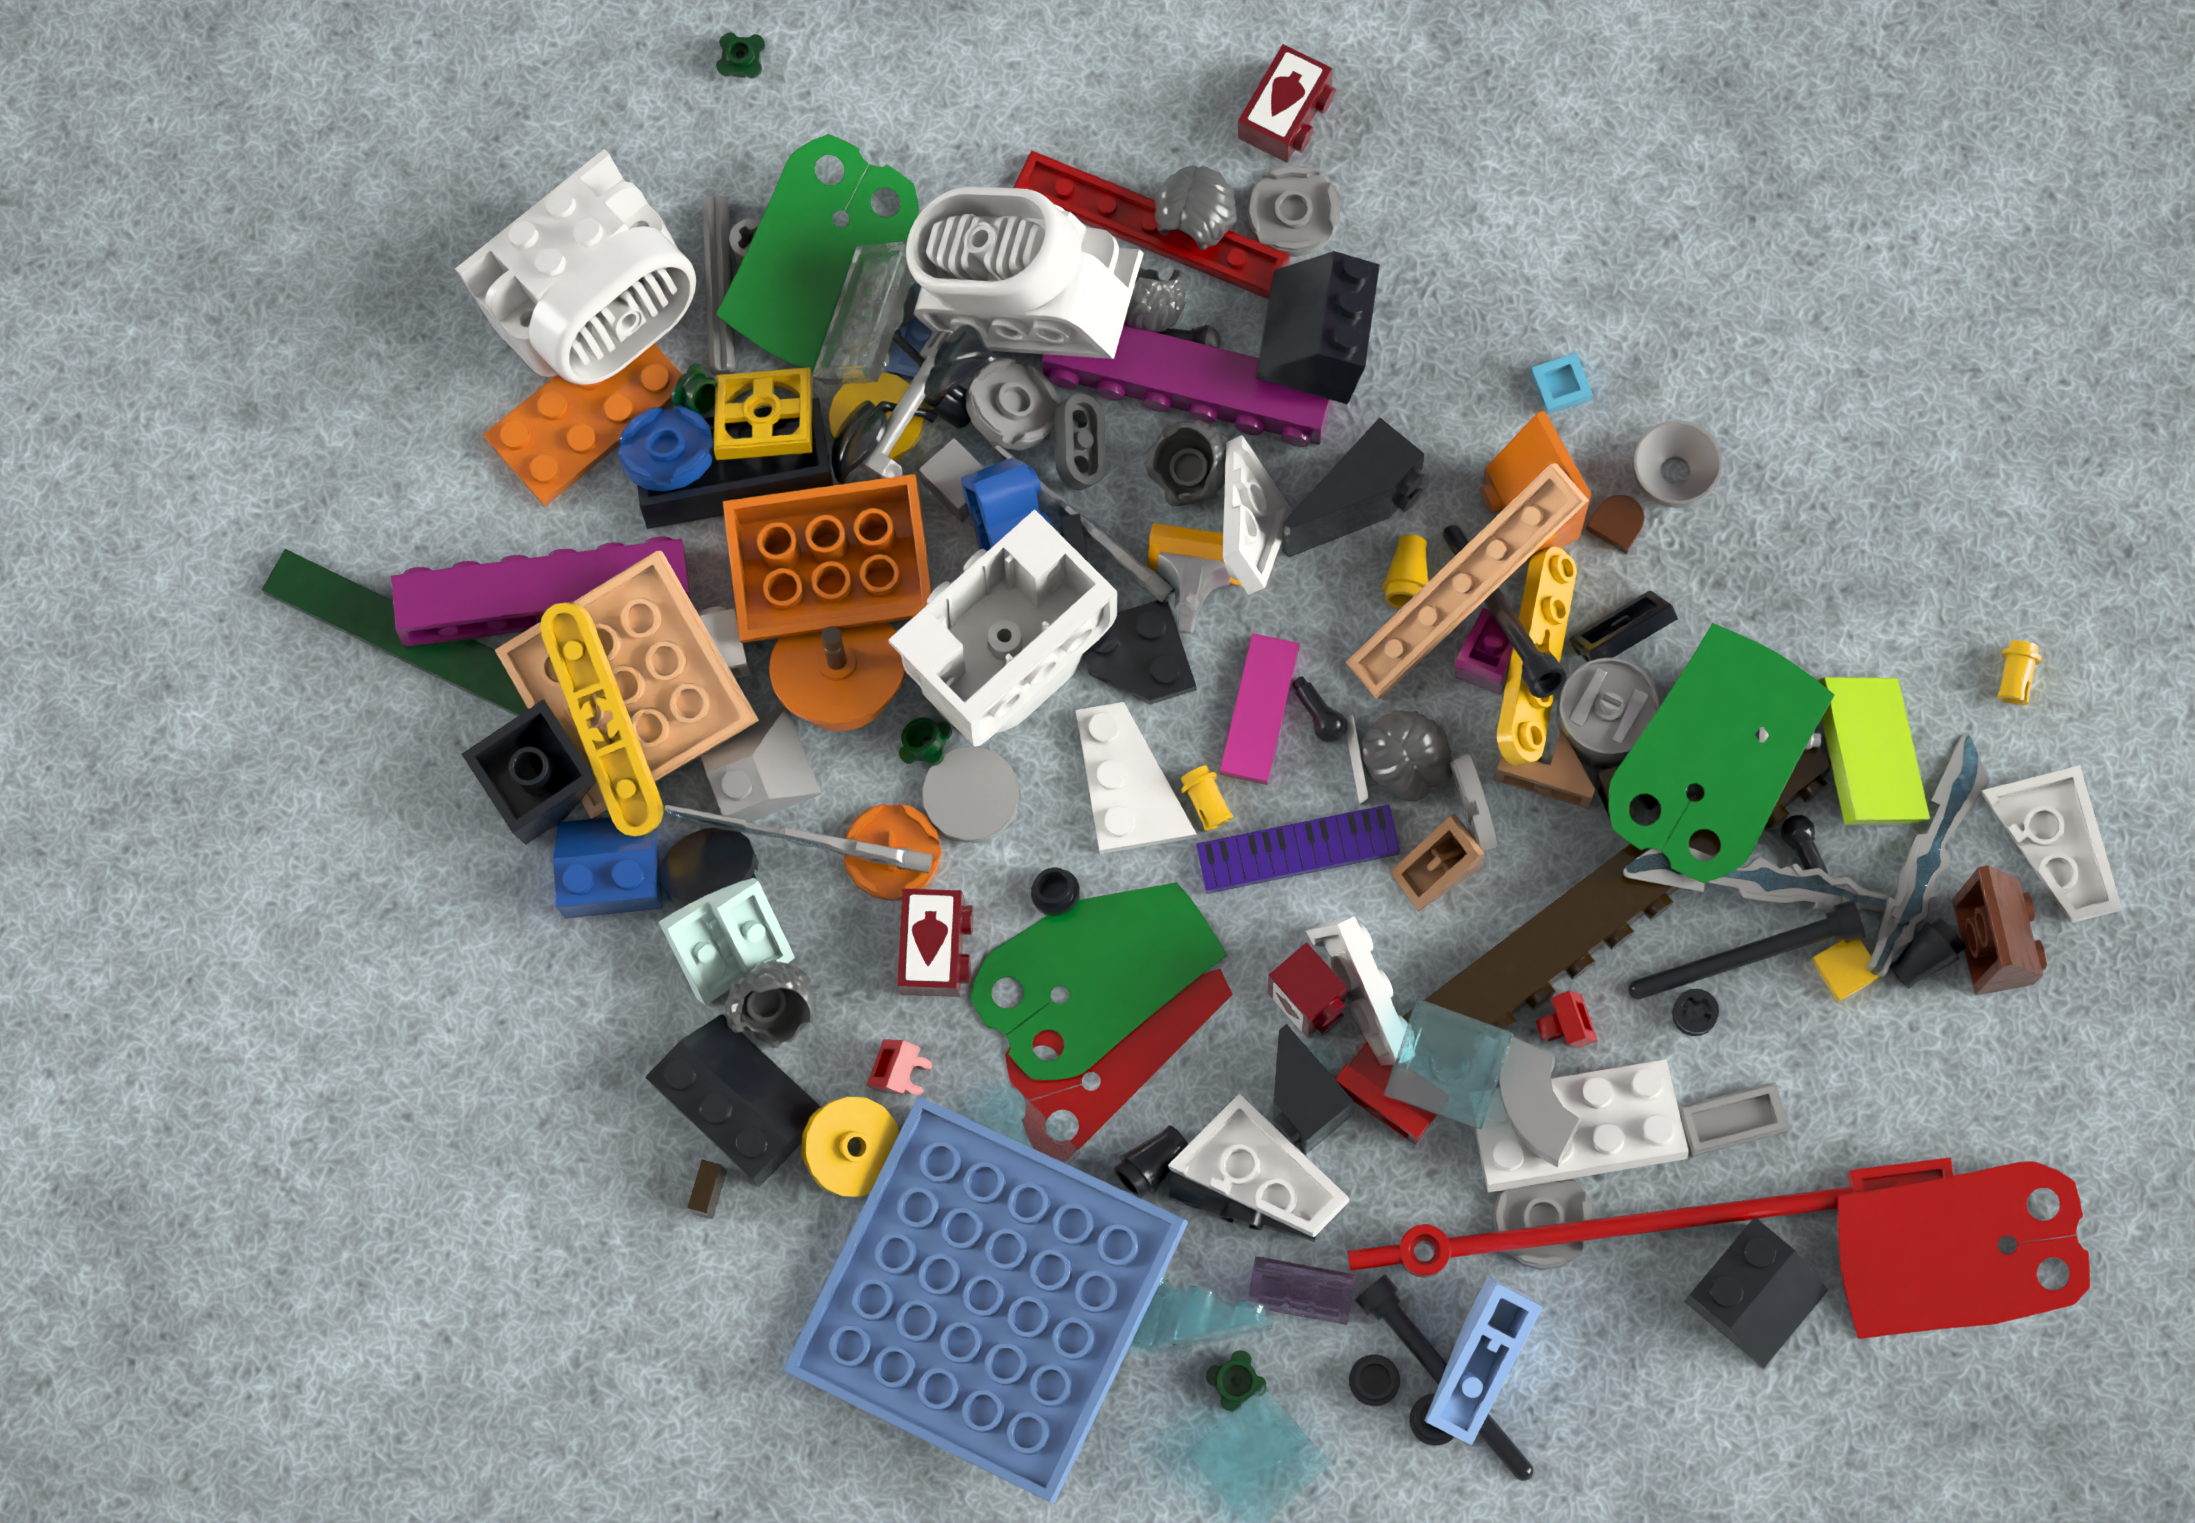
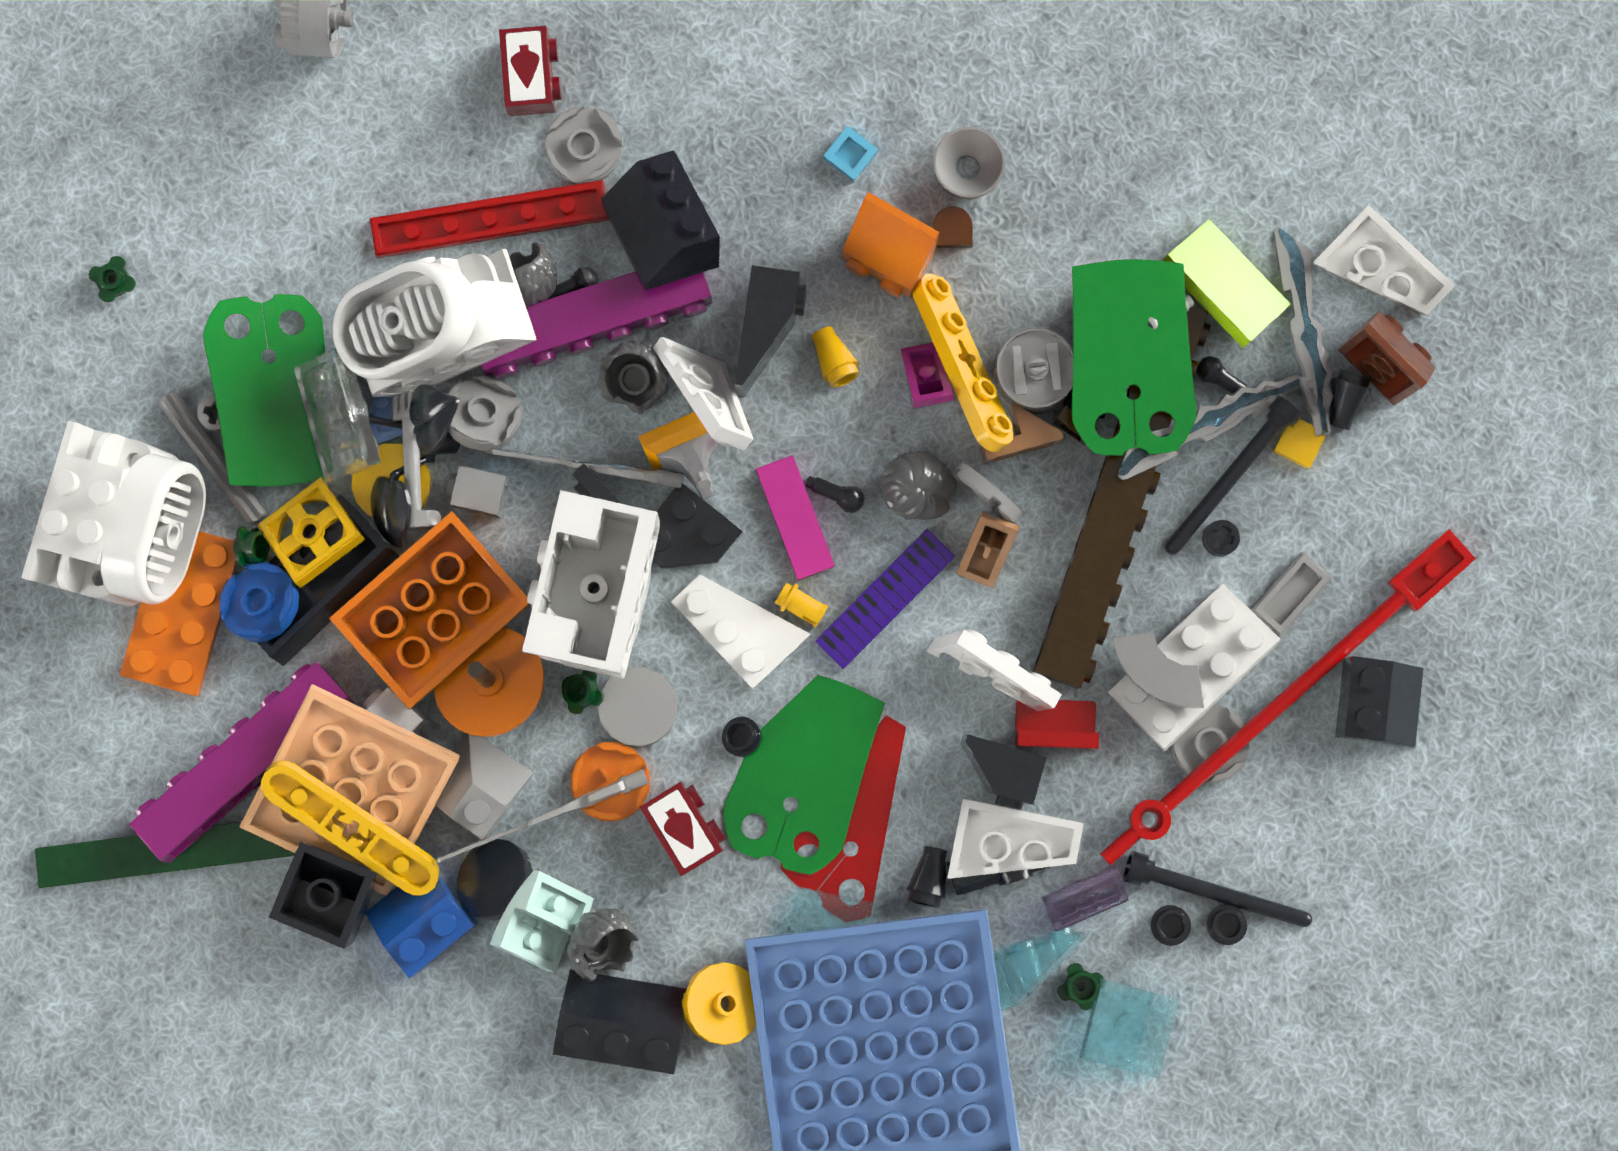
camera: 45 degrees left, 10 degrees up
(707, 1189) = (644, 1097): dark brown tile -> none
(895, 1066) = (714, 929): tile -> none
(1000, 499) = (528, 493): blue brick -> none
(1080, 444) = (548, 410): dark grey plate -> none
(1197, 204) = (515, 186): dark grey hair -> none
(1308, 991) = (962, 697): dark red brick -> none
(1356, 760) = (883, 510): white sticker -> none
(1448, 1064) = (1088, 685): clear light blue tile -> none
(1467, 580) = (886, 342): light nougat tile -> none
(1482, 1358) = (1234, 865): light blue slope -> none
(1540, 671) = (980, 376): black piece -> none
(1569, 1021) = (1144, 599): red tile -> none
(1624, 627) = (1006, 303): black tile -> none
(1932, 1255) = (1478, 600): red piece -> none
(2018, 672) = (1285, 163): yellow pin -> none

